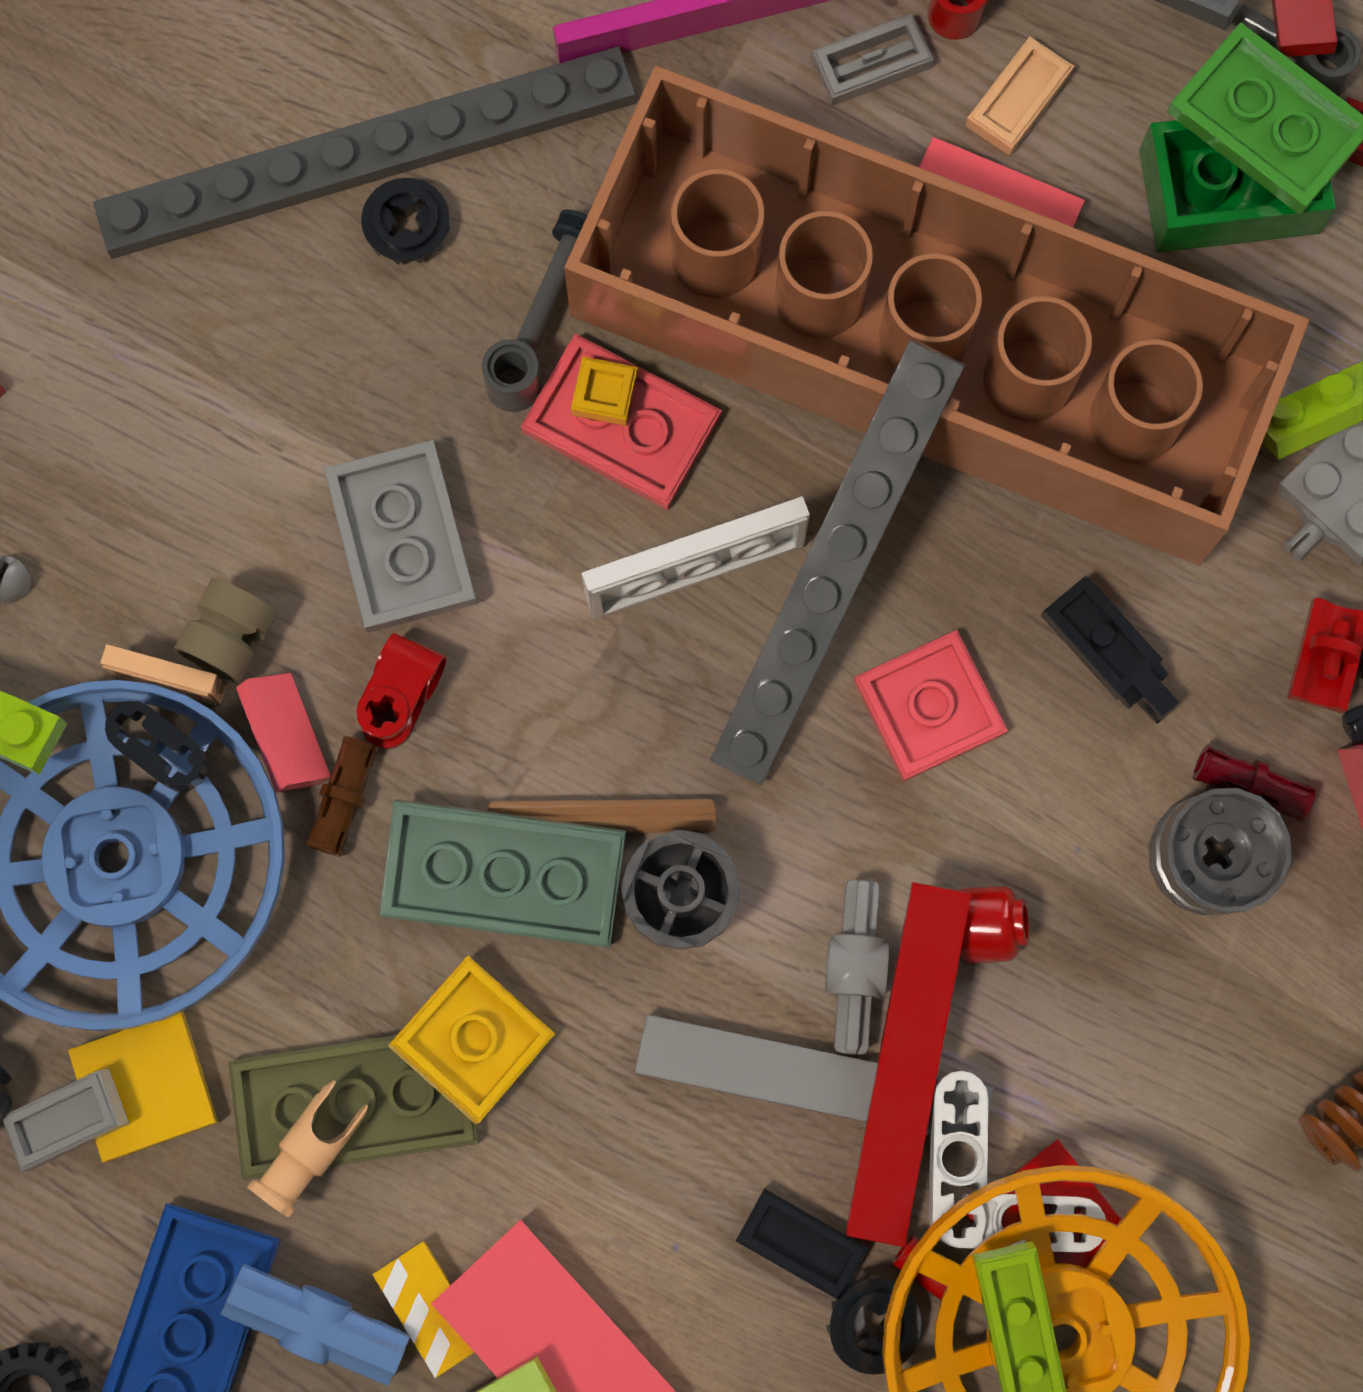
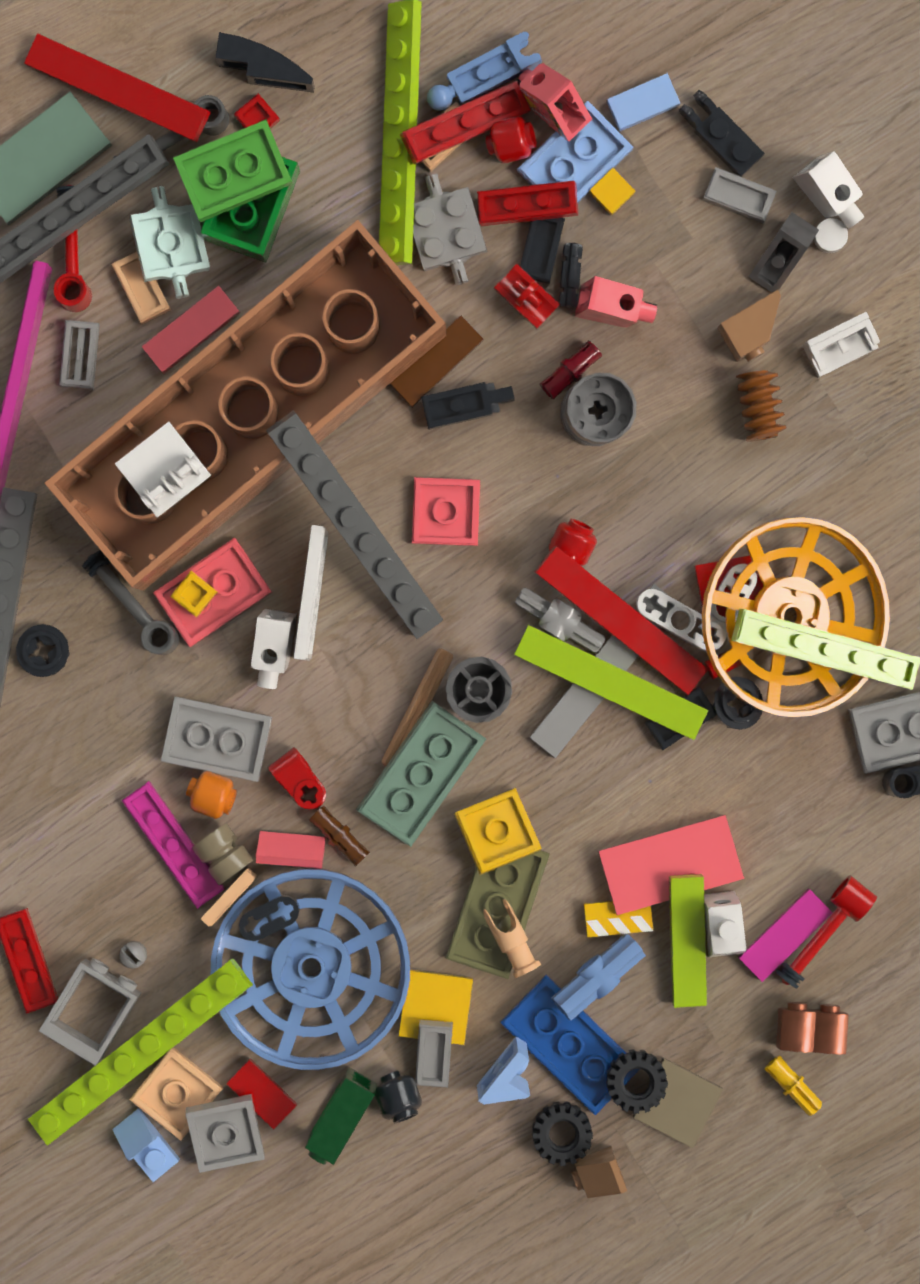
camera: 60 degrees left, 10 degrees up
(75, 1254) = (503, 1078): none -> light blue slope
(206, 550) = (172, 843): none -> dark pink tile
(309, 569) = (211, 794): none -> orange head
(602, 529) = (273, 632): none -> white torso
(767, 221) = (163, 469): none -> white hinge
(801, 1101) = (611, 682): none -> lime tile
(1107, 97) = (169, 242): none -> light aqua plate
(1151, 576) = (437, 362): none -> reddish brown tile

